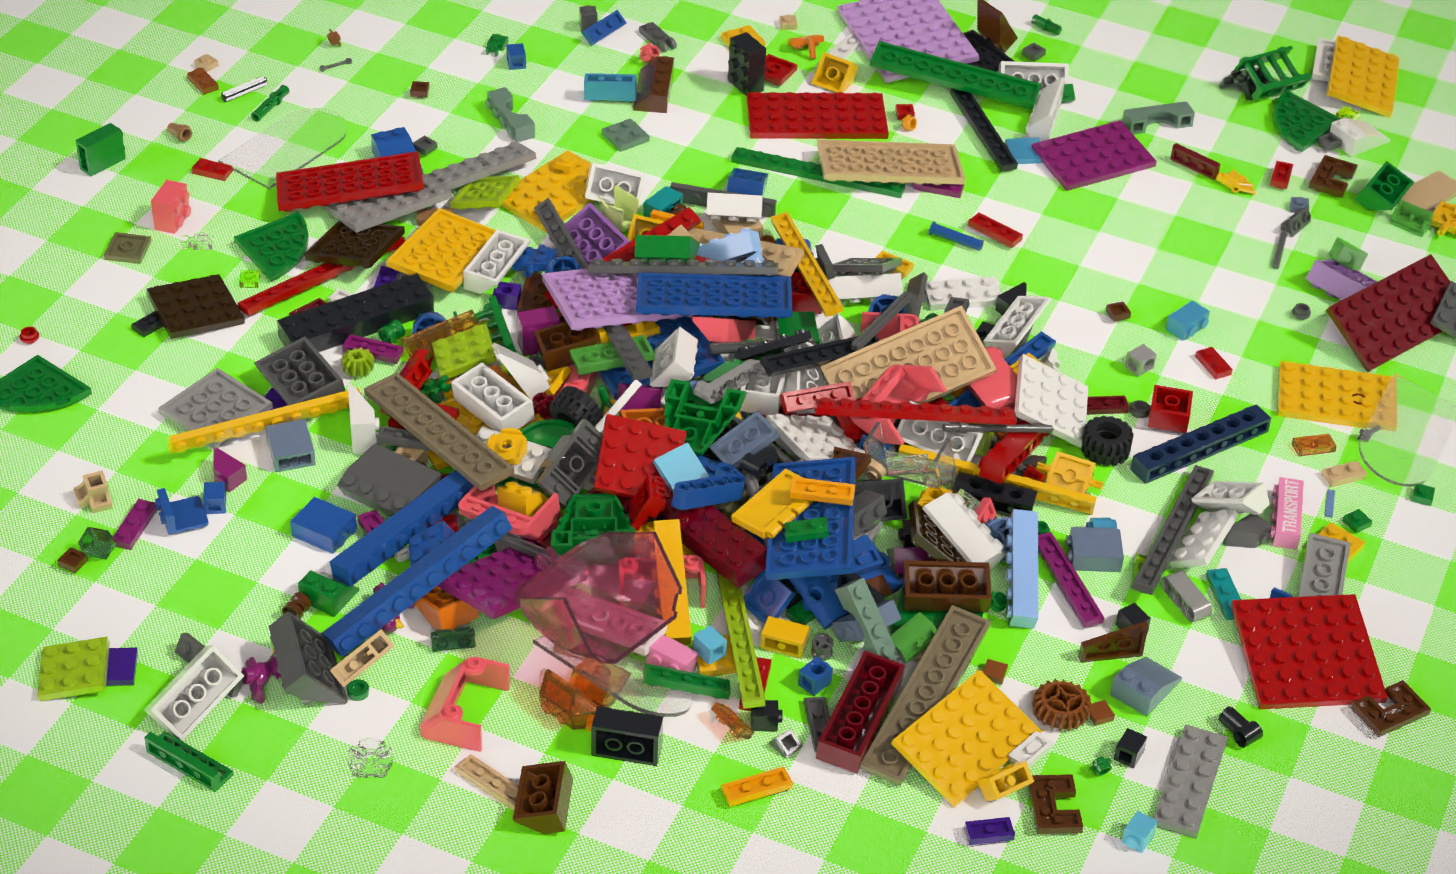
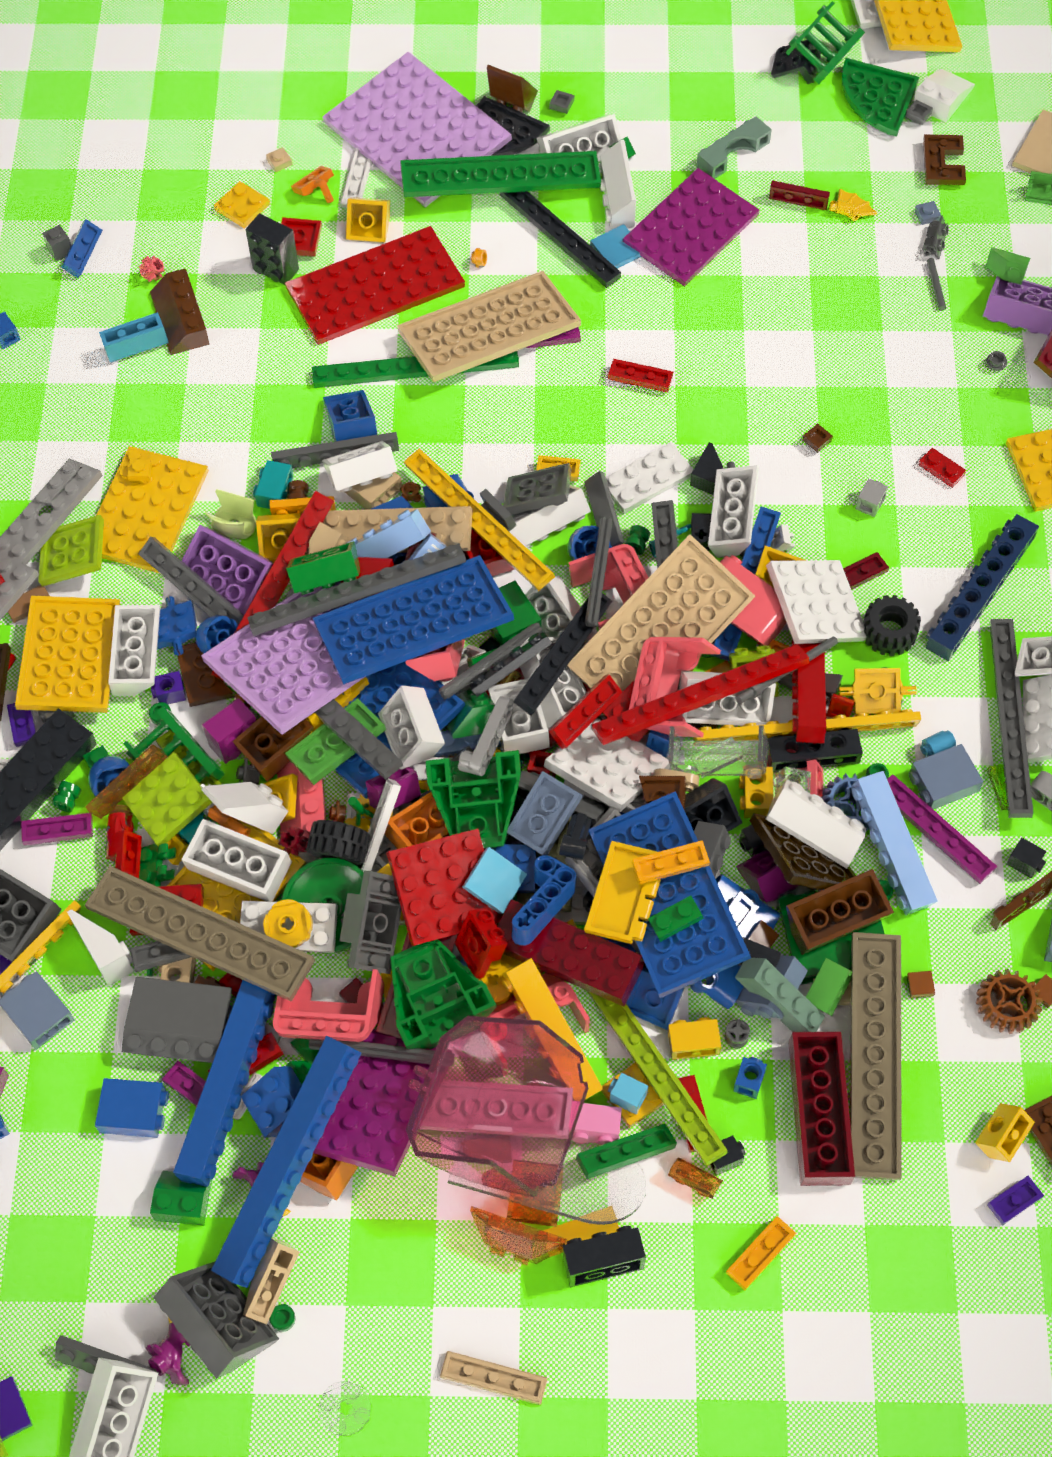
camera: 20 degrees left, 20 degrees up
(298, 605) = (160, 1237): reddish brown wheel -> none
(357, 362) = (46, 865): lime gear -> none
(444, 718) = (390, 1323): coral windscreen -> none
(447, 640) = (351, 1202): clear green hinge -> none
(518, 126) = (57, 433): sand green arch -> none
(520, 498) = (336, 985): yellow slope -> none
(544, 797) = (555, 1379): reddish brown slope -> none
(603, 178) = (200, 479): white slope -> none
(625, 135) = (181, 396): sand green plate -> none
(657, 36) = (146, 236): dark grey hinge -> none
(786, 743) = (760, 1178): slope -> none
(799, 614) = (692, 1000): green plate -> none
(817, 717) = (777, 1132): dark grey tile -> none
(903, 110) = (467, 243): red plate -> none
(956, 236) = (604, 401): blue pin -> none
(965, 737) = (940, 1093): yellow plate -> none
(1031, 749) = (1006, 1076): white plate -> none
(1046, 24) = (556, 56): green axle -> none
(1139, 409) = (898, 562): dark grey tile -> none
(1170, 409) = (934, 555): red brick -> none
(1188, 320) = (893, 421): dark azure brick -> none
(1281, 174) = (892, 178): red plate -> none
(1347, 112) = (920, 67): clear neon green plate -> none
(1385, 188) = (1005, 160): green slope -> none

